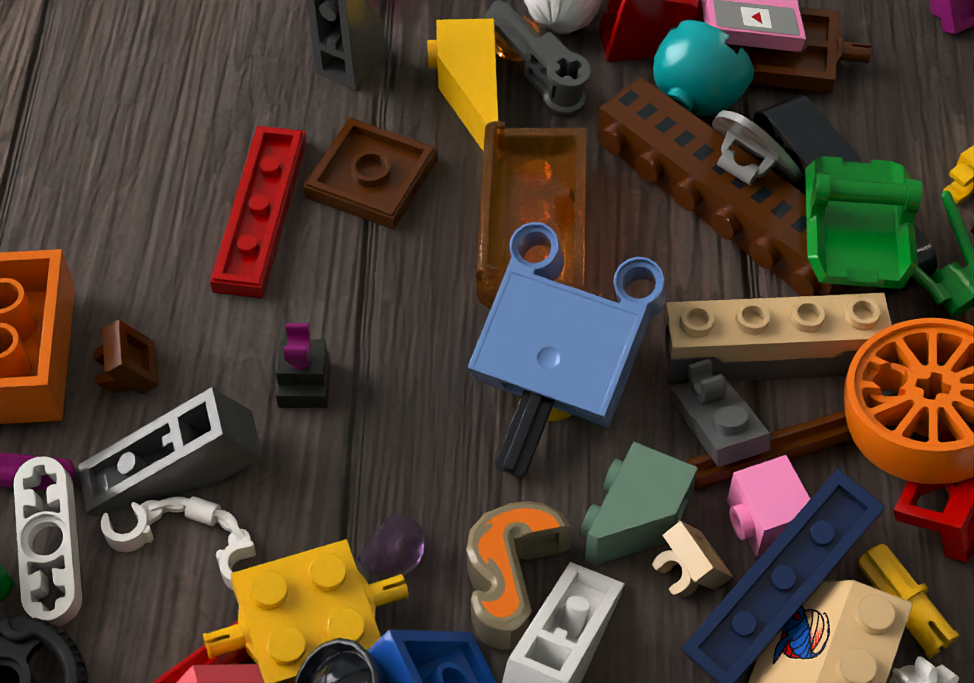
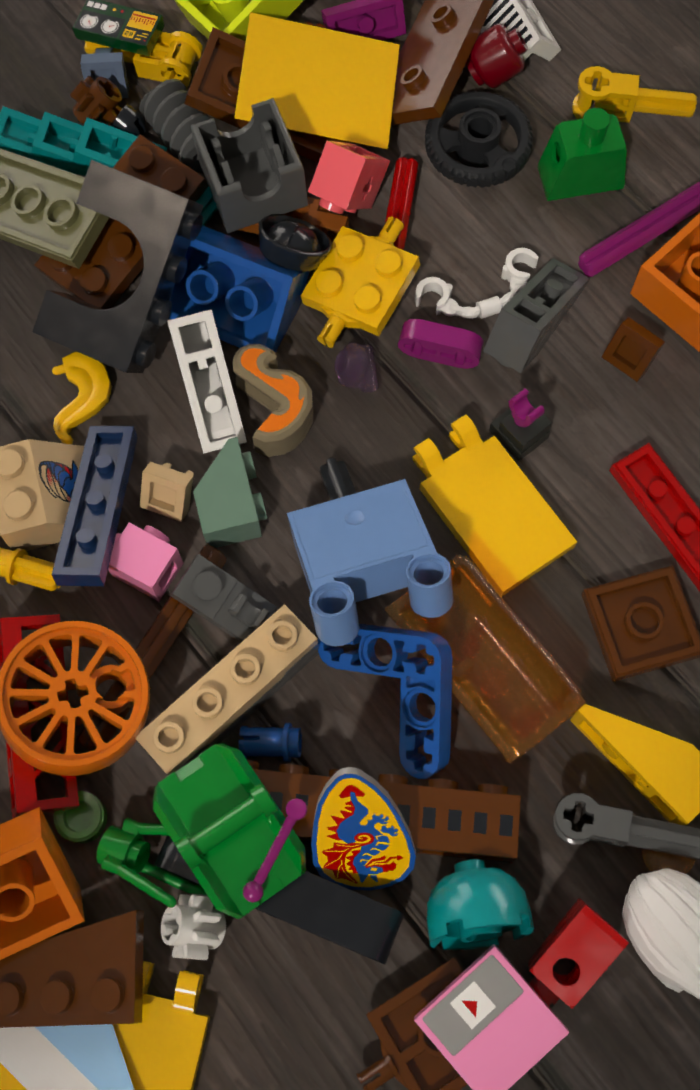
camera: 140 degrees right, 15 degrees up
(68, 580) = (579, 239): white beam -> none
(292, 500) = (440, 343): none -> magenta beam
(398, 335) = (491, 507): none -> yellow tile
(598, 231) = (415, 679): none -> blue beam
(757, 283) = (271, 742): none -> blue pin
(795, 181) = (296, 810): none -> magenta hinge
(932, 215) = (193, 927): none -> white gear

